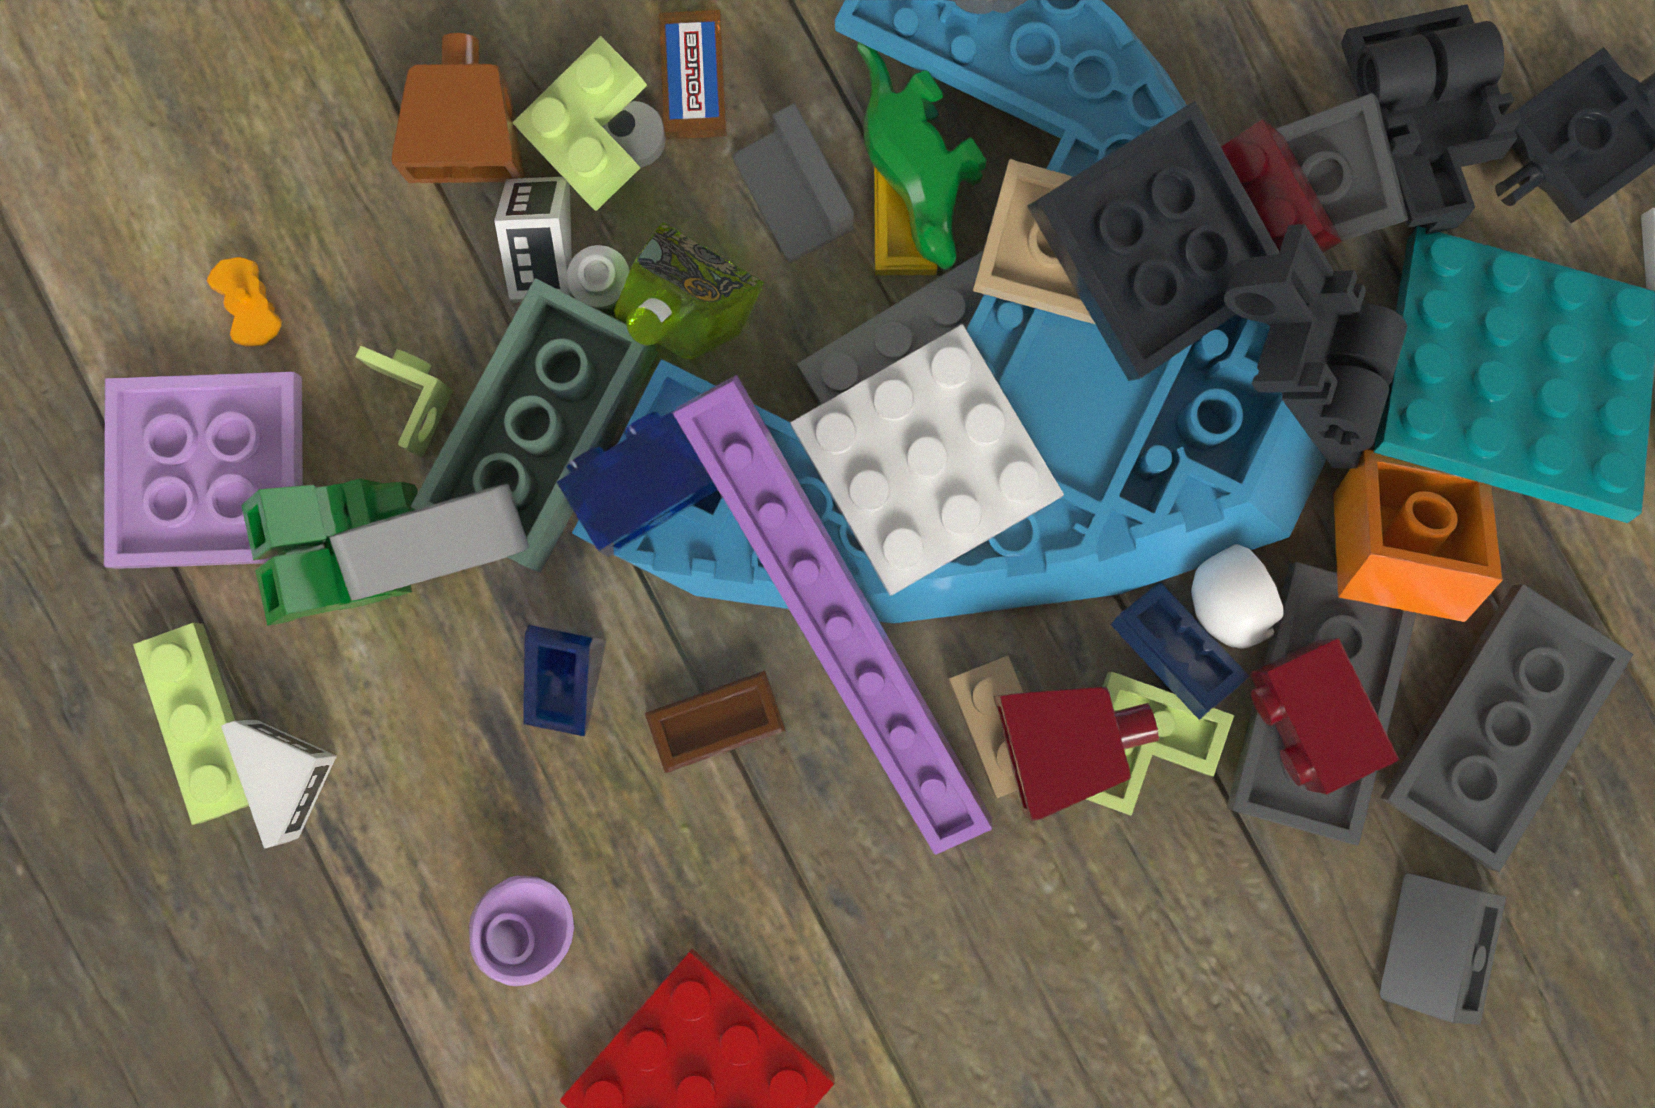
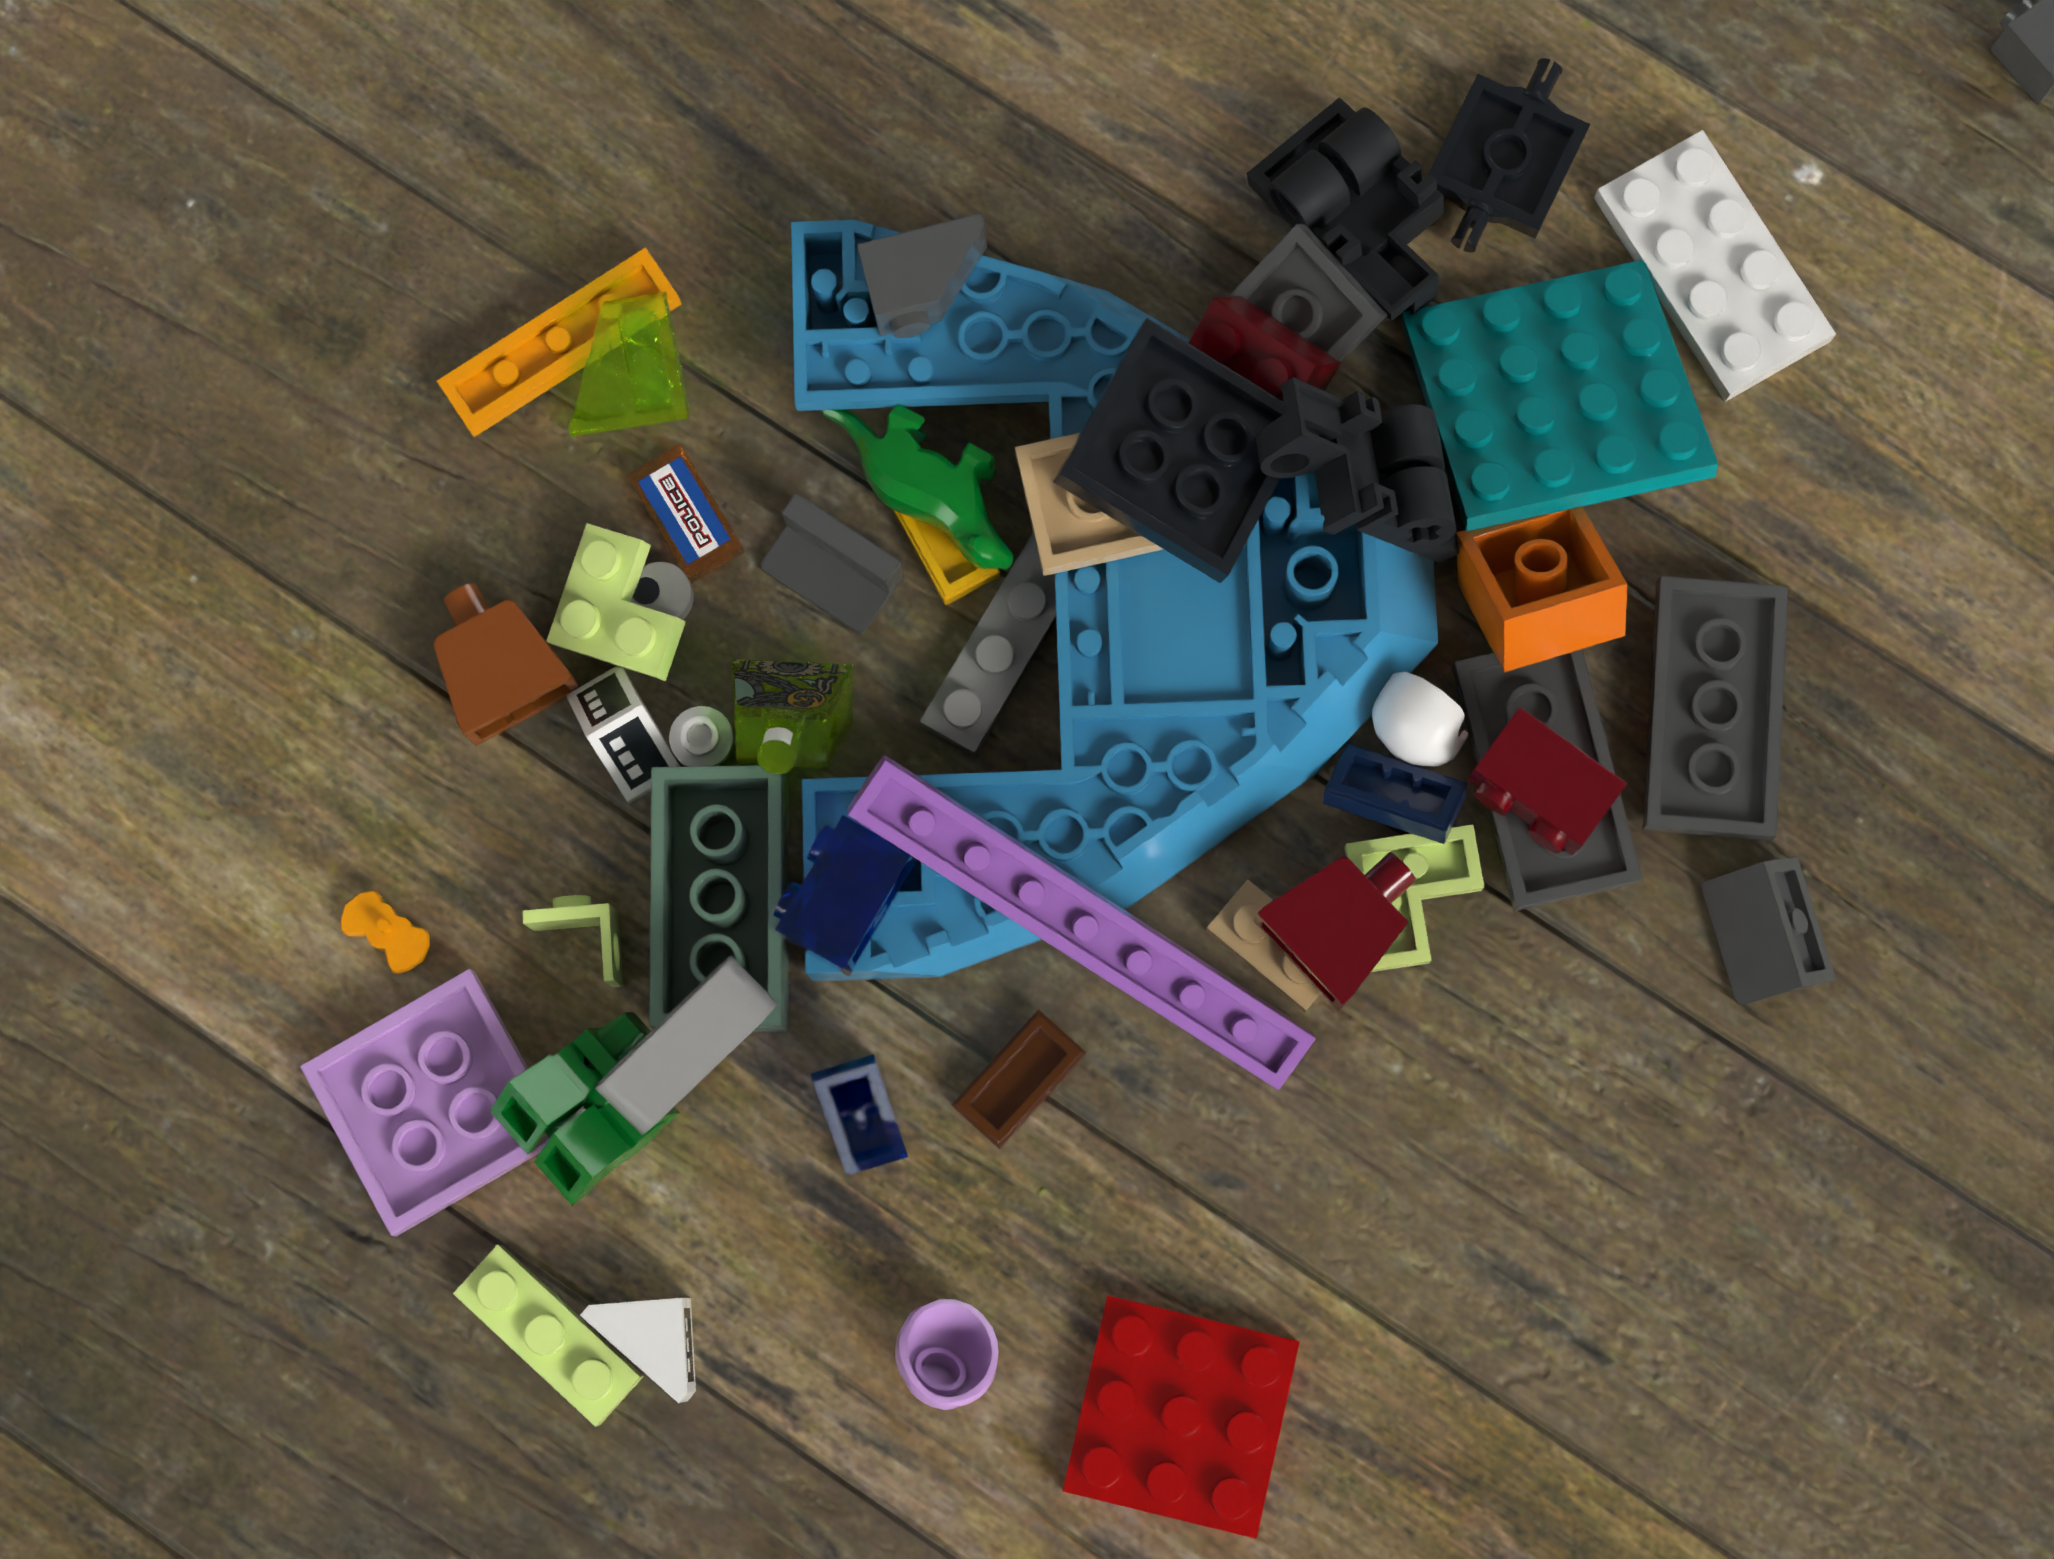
camera: 25 degrees left, 5 degrees down
(926, 460) = (1082, 743): white plate -> none

